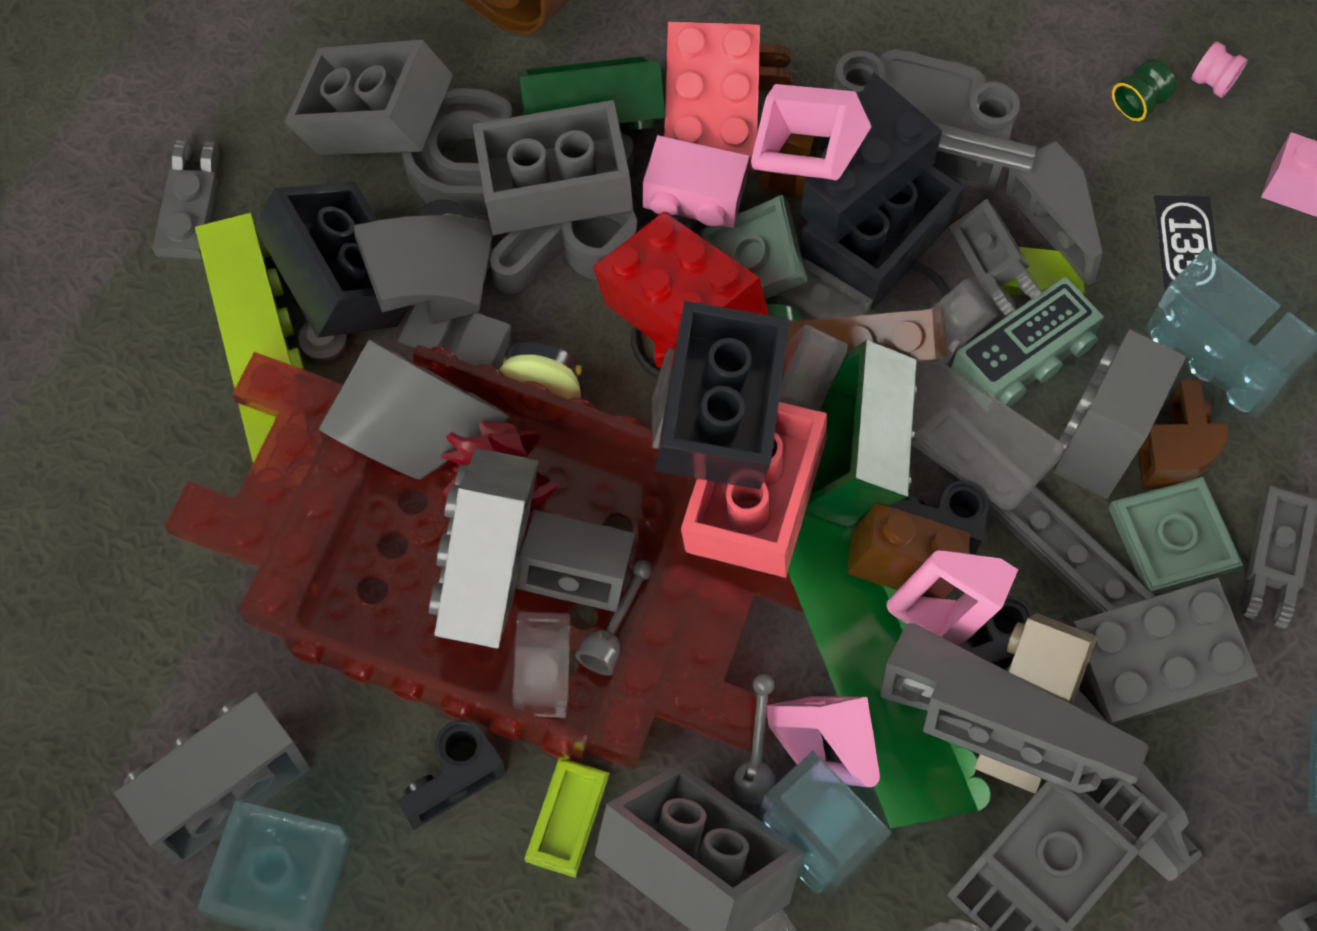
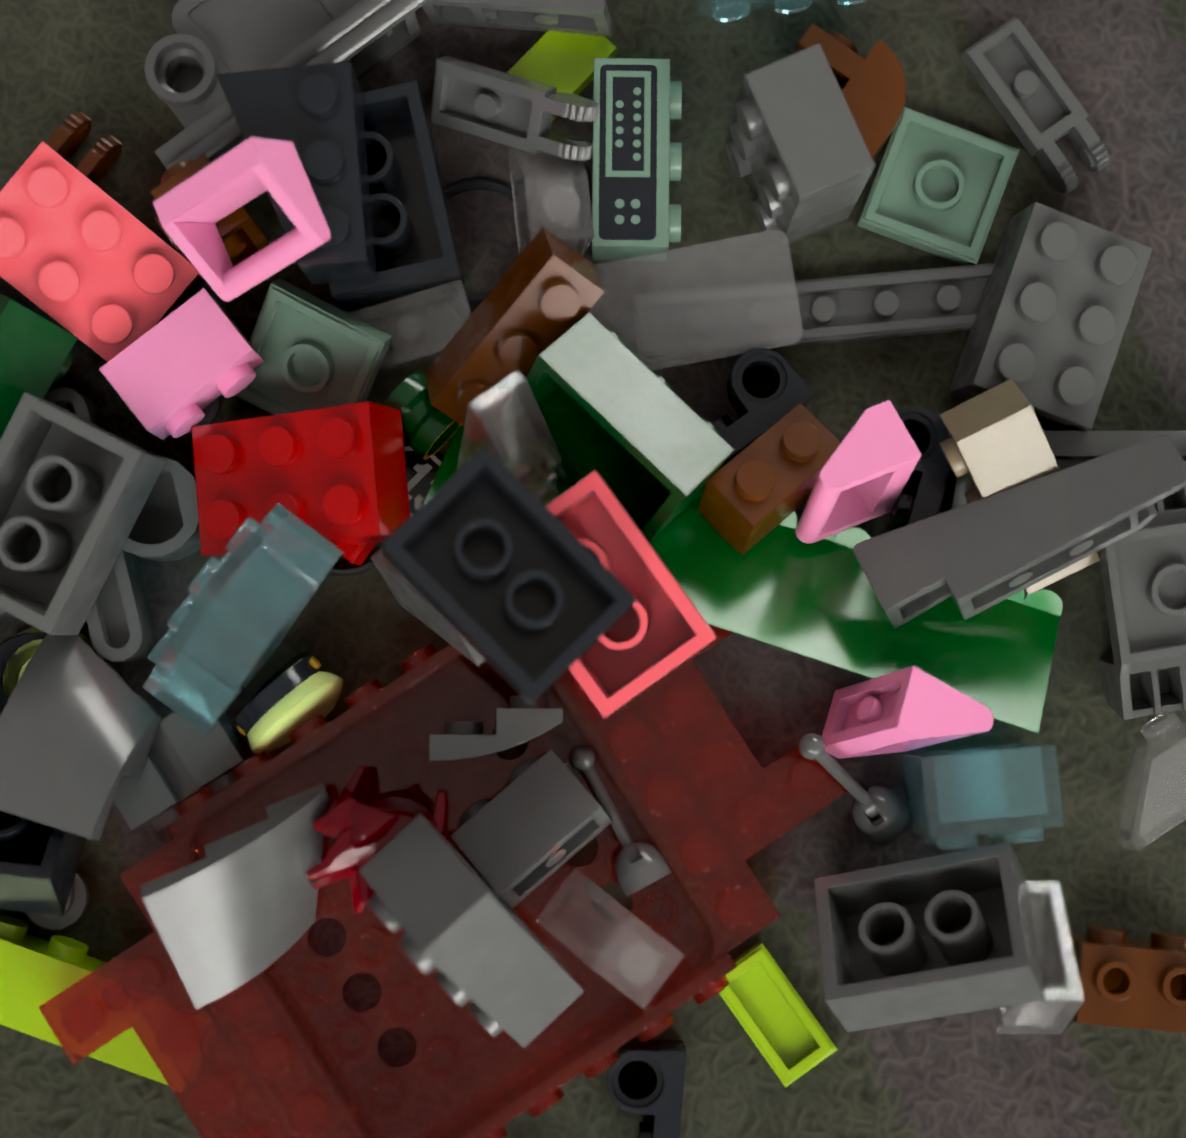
camera: 50 degrees left, 20 degrees up
(576, 298) = (238, 615): none -> clear light blue piece
(625, 510) = (513, 728): none -> dark grey slope

